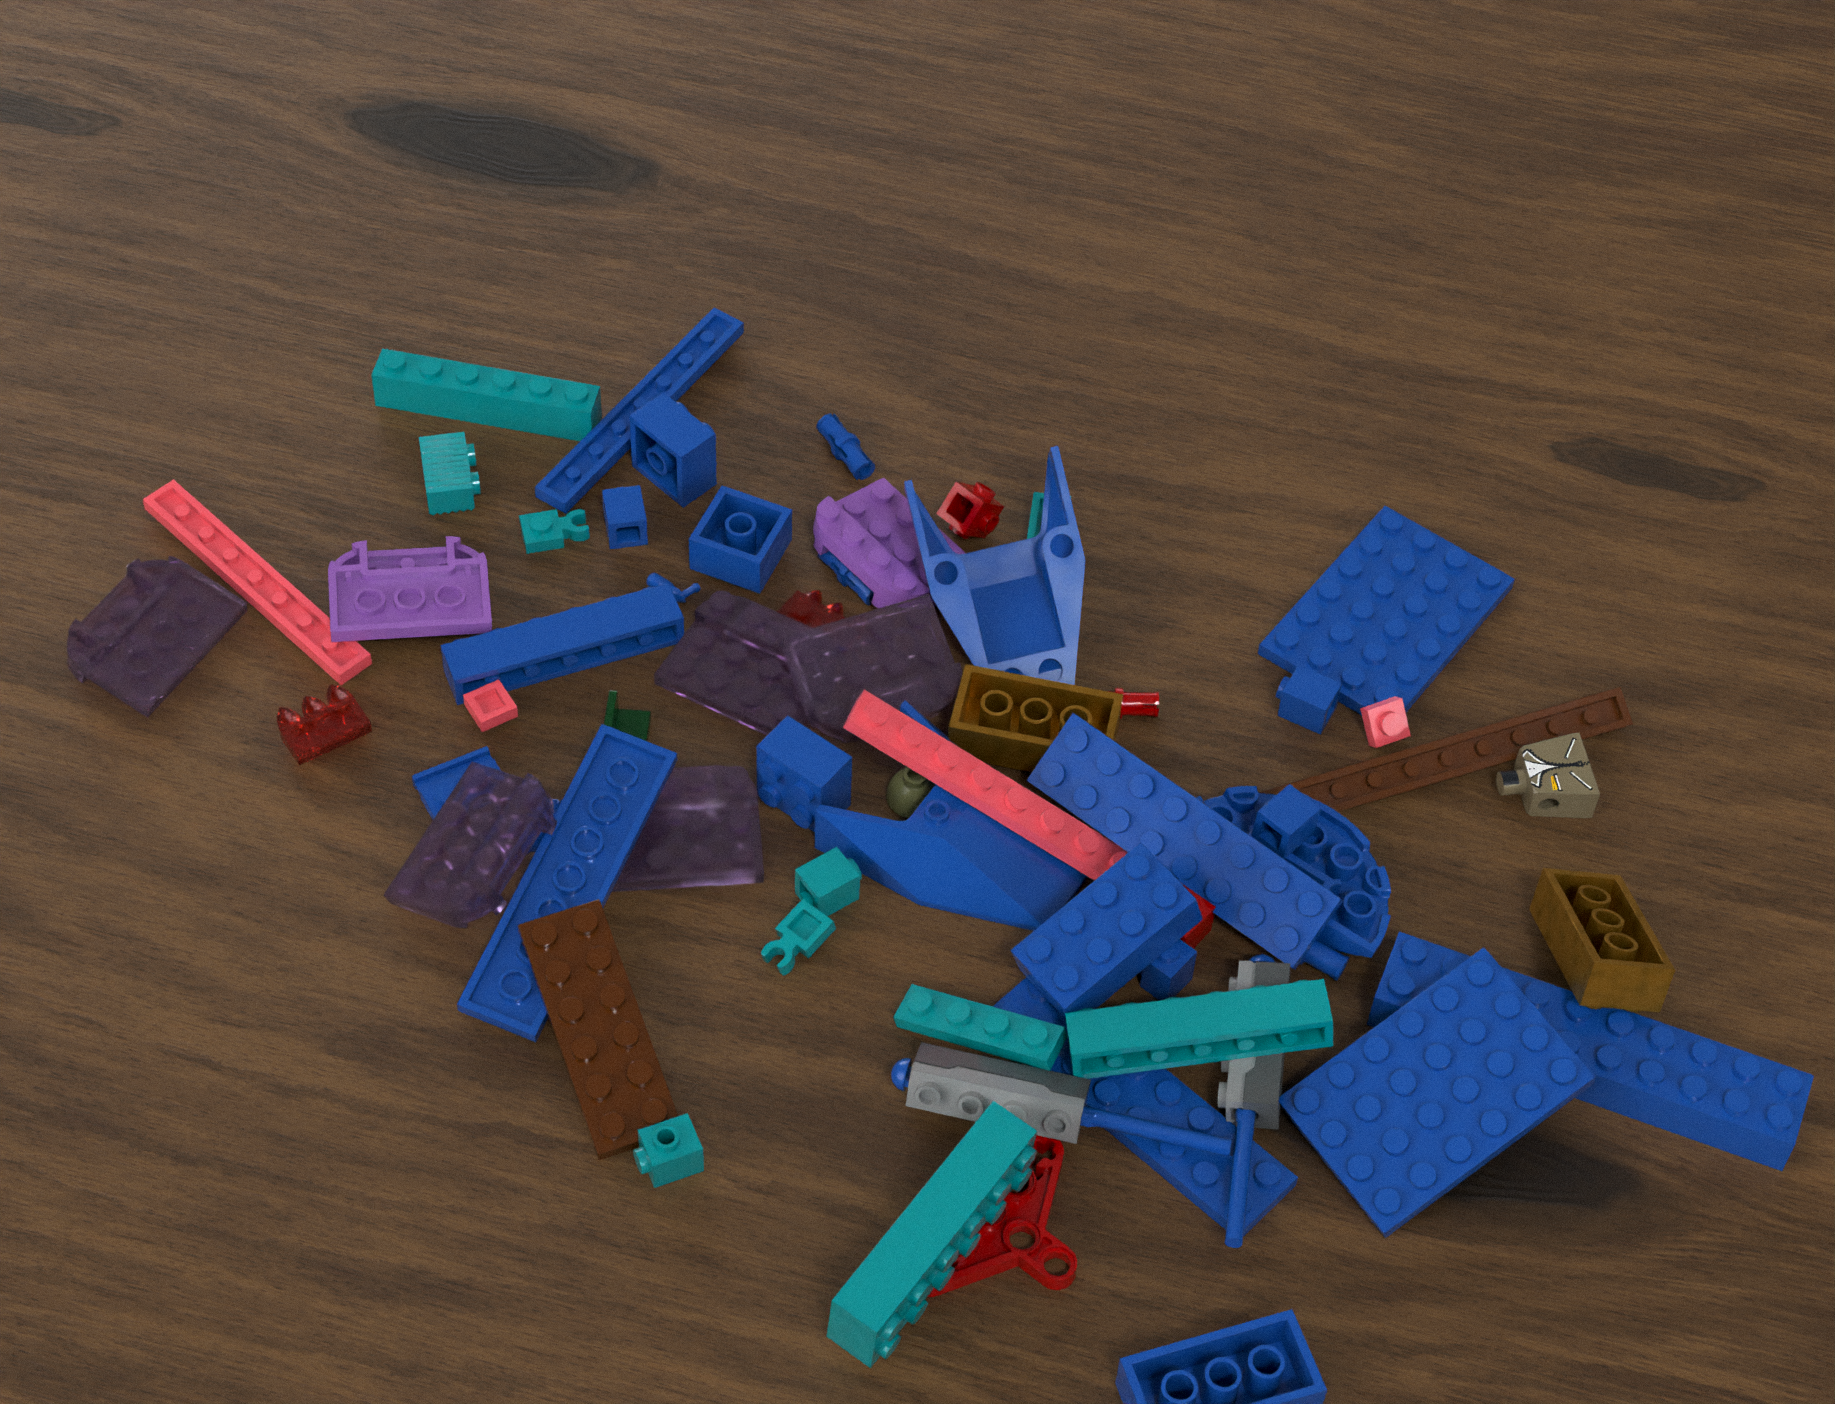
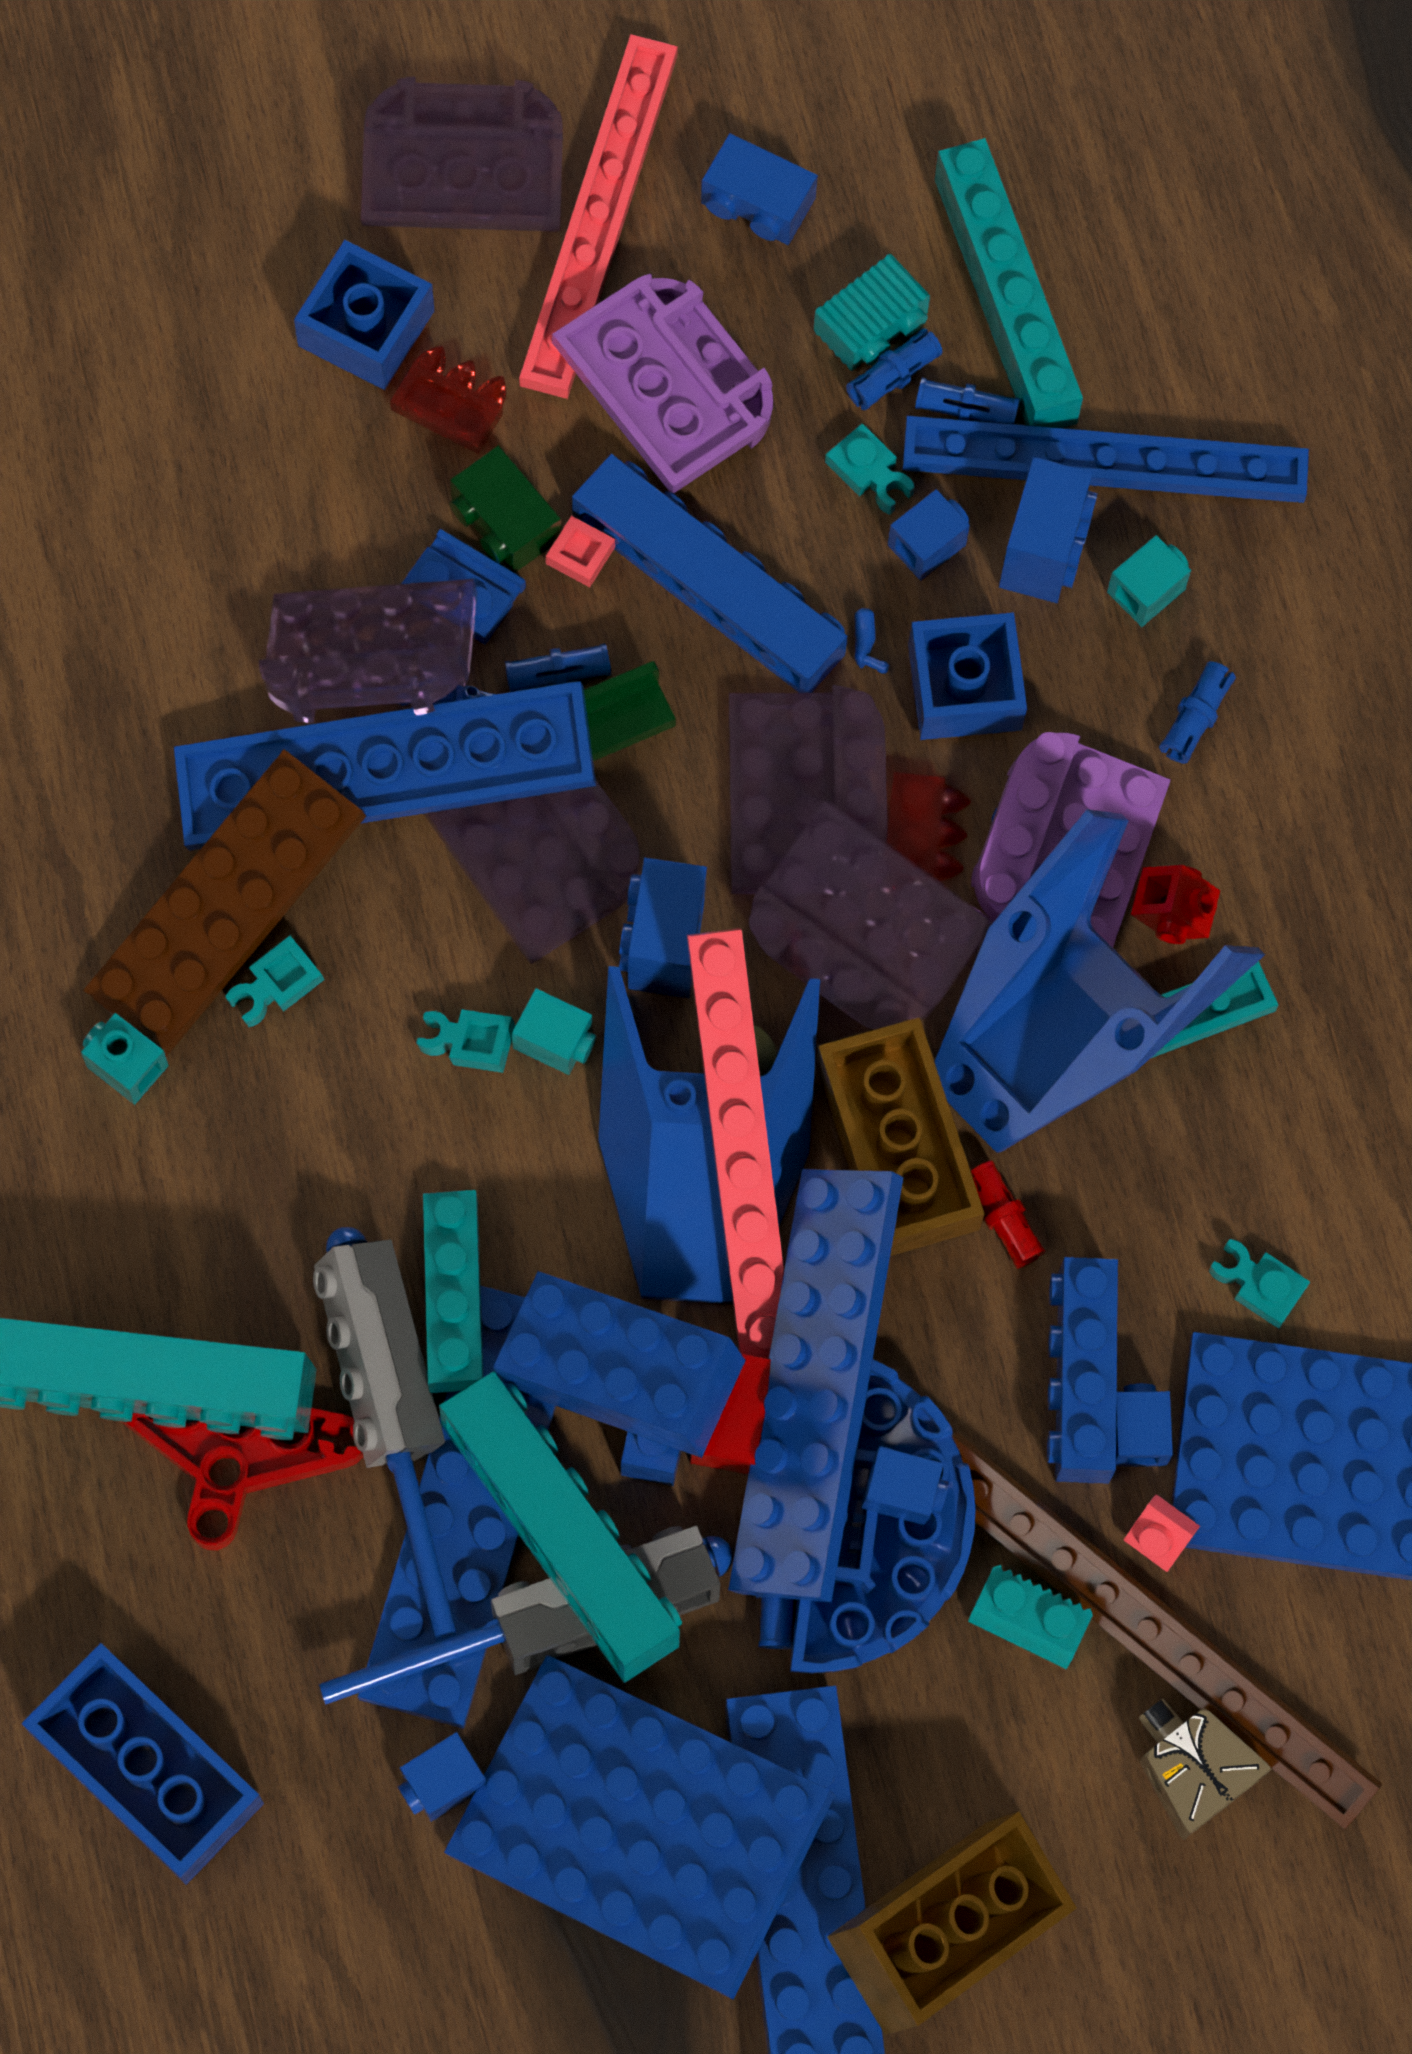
camera: 60 degrees right, 20 degrees up
(223, 736) = (364, 314): none -> blue brick
(310, 486) = (758, 188): none -> blue brick
(427, 730) = (504, 510): none -> dark green brick
(494, 481) = (894, 369): none -> blue pin
(530, 471) = (932, 397): none -> blue pin
(565, 758) = (558, 668): none -> blue pin
(676, 1027) = (281, 977): none -> teal plate
(741, 425) = (1149, 580): none -> teal brick
(1247, 596) = (1267, 1287): none -> teal plate
(1254, 706) = (1086, 1370): none -> blue brick
(1330, 1205) = (440, 1778): none -> blue brick
(1404, 814) = (1030, 1617): none -> teal brick

